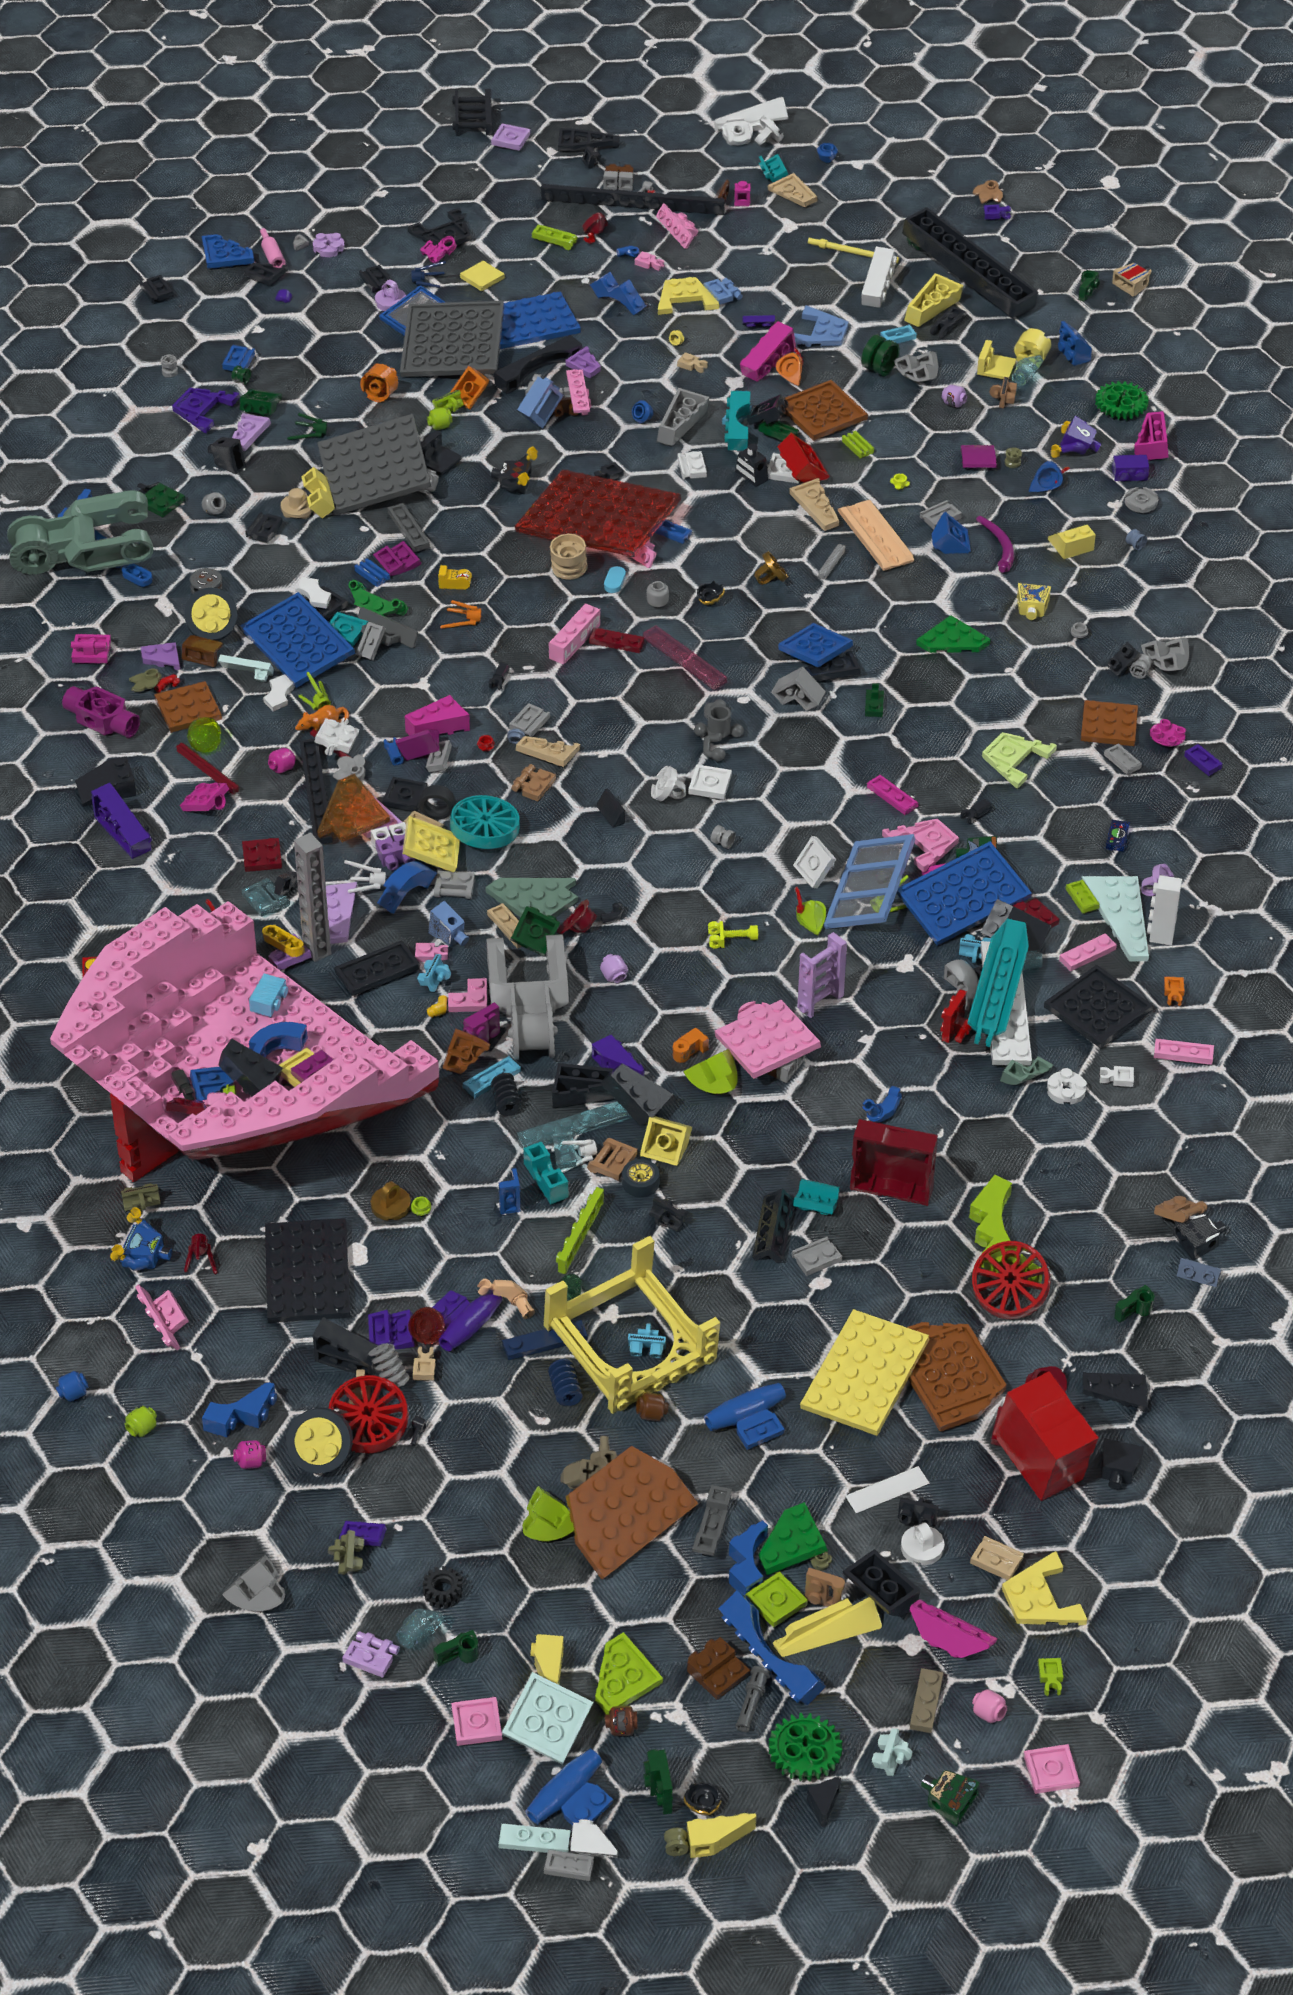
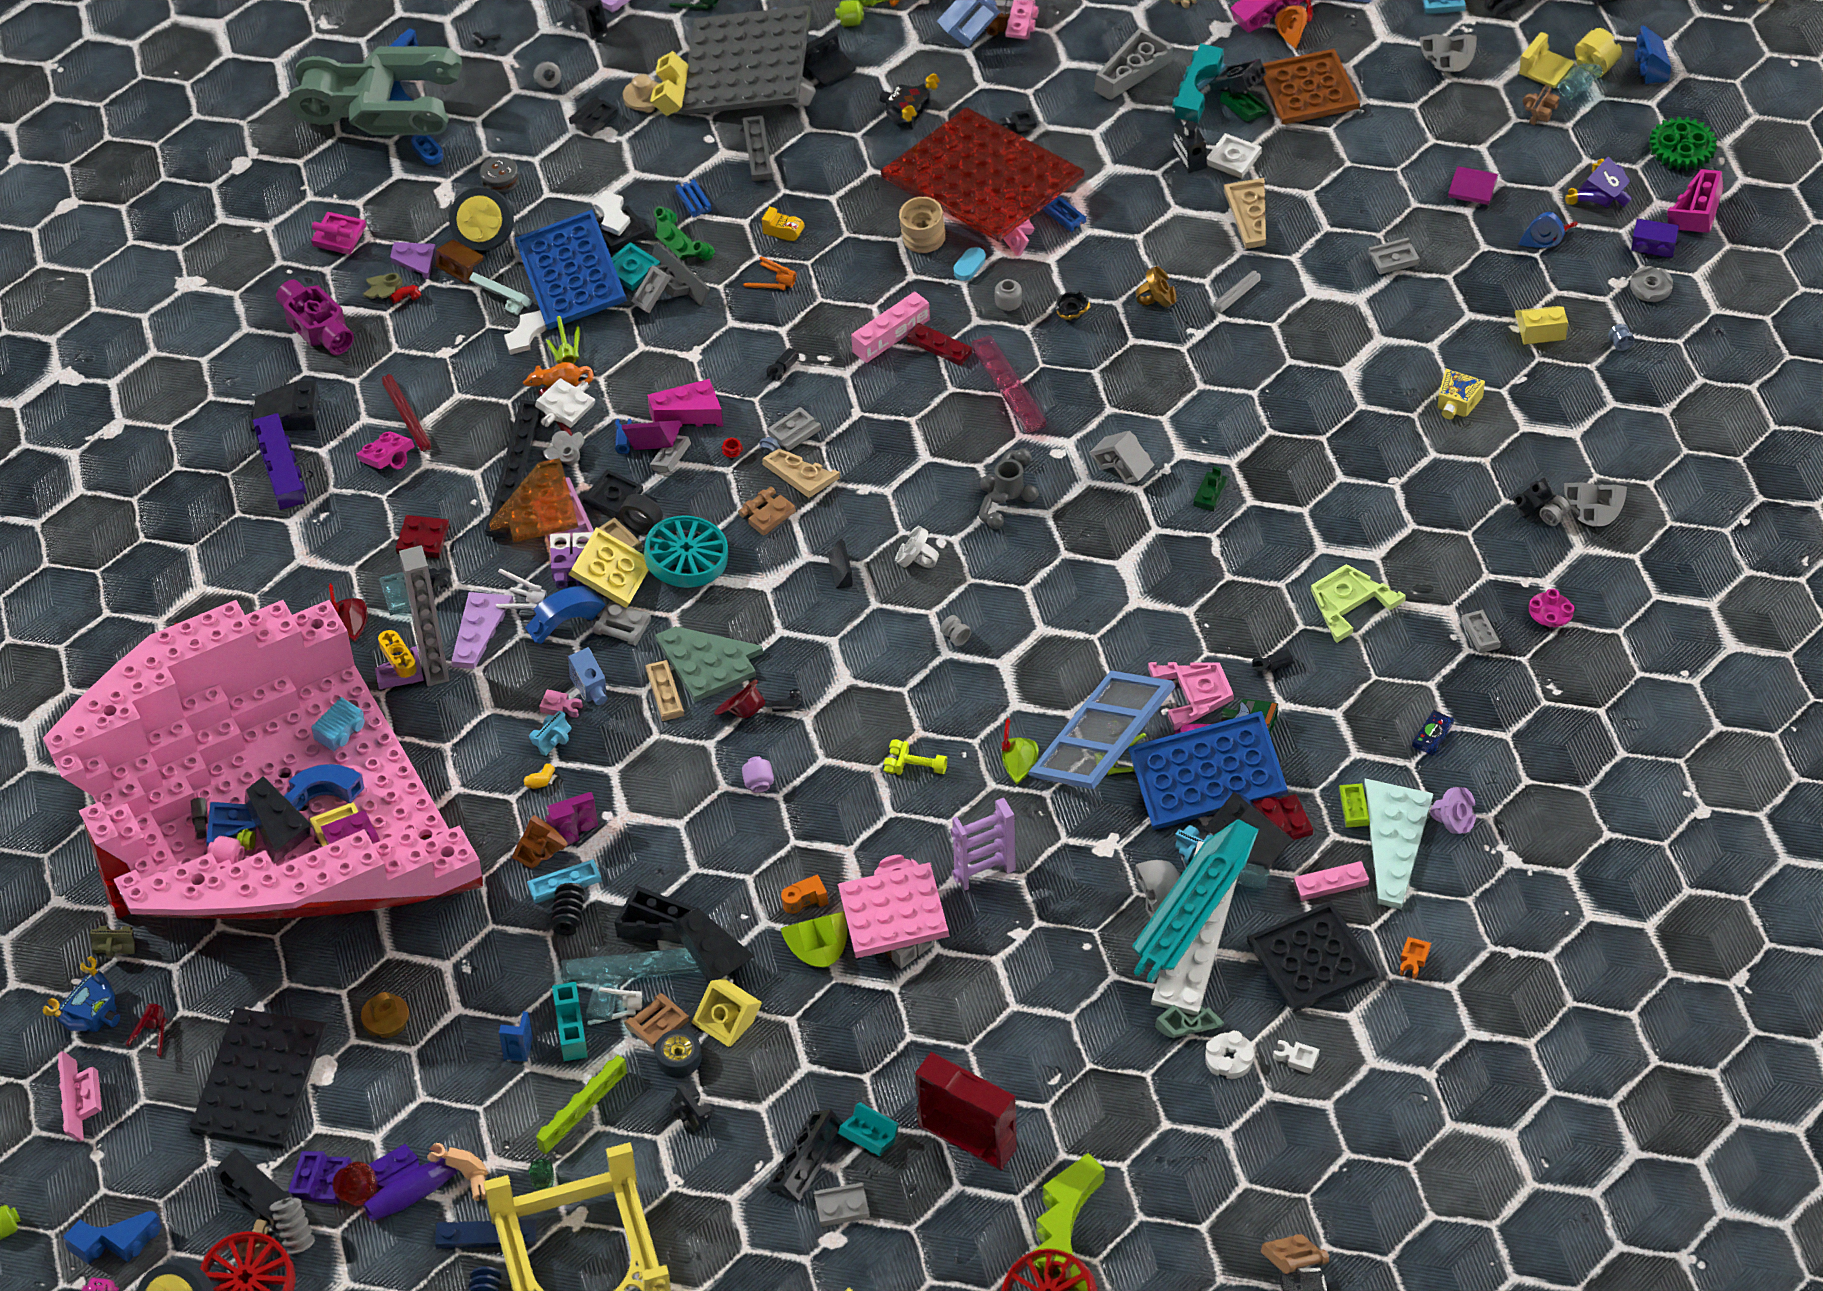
camera: 20 degrees right, 5 degrees up
(163, 500) = (494, 57): dark green plate -> none
(186, 704) = (417, 329): dark orange plate -> none
(186, 1106) = (185, 846): dark red wing -> none
(204, 734) = (415, 371): clear neon green tile -> none
(281, 760) = (490, 421): dark pink head -> none
(377, 968) = (490, 711): black plate -> none
(397, 559) = (729, 186): magenta slope -> none
(421, 1206) = (416, 1028): lime plate -> none
(424, 1365) = (337, 1234): tan plate -> none
(473, 1000) = (583, 777): bright pink plate -> none
(529, 1002) = (638, 798): light grey arm -> none
(532, 930) = (685, 705): dark green plate -> none
(610, 1054) = (710, 892): dark purple slope -> none
(642, 411) = (1090, 49): blue cone -> none
(648, 1339) = (607, 1273): medium azure hips -> none
(692, 465) = (1123, 130): white plate -> none
(710, 782) = (970, 554): white plate -> none
(801, 459) = (1253, 150): red slope -> none
(814, 862) = (1047, 689): white tile -> none
(815, 645) = (1168, 400): blue plate -> none
(836, 668) = (1180, 436): black wing -> none
(860, 443) = (1330, 130): lime tile -> none
(876, 535) = (1304, 267): light nougat plate -> none
(880, 355) = (1403, 27): dark green wheel -> none
(883, 1110) = (1000, 1033): blue arm -> none
(892, 794) = (1182, 618): dark pink tile -> none
(900, 481) = (1363, 200): neon yellow plate -> none
(950, 536) = (1393, 287): blue slope -> none
(952, 636) = (1341, 422): green plate -> none
(954, 396) = (1476, 98): lavender head -> none
(954, 1018) = (1125, 932): red plate -> none
(1008, 551) = (1455, 324): magenta animal -> none
(1013, 457) = (1515, 195): olive wheel -> none
(1079, 630) = (1500, 446): light grey plate -> none
(1109, 723) = (1486, 578): dark orange plate -> none
(1165, 909) = (1436, 852): white wedge -> none
(1183, 1051) = (1391, 1042): bright pink plate -> none
(1203, 760) = (1580, 654): dark purple plate -> none

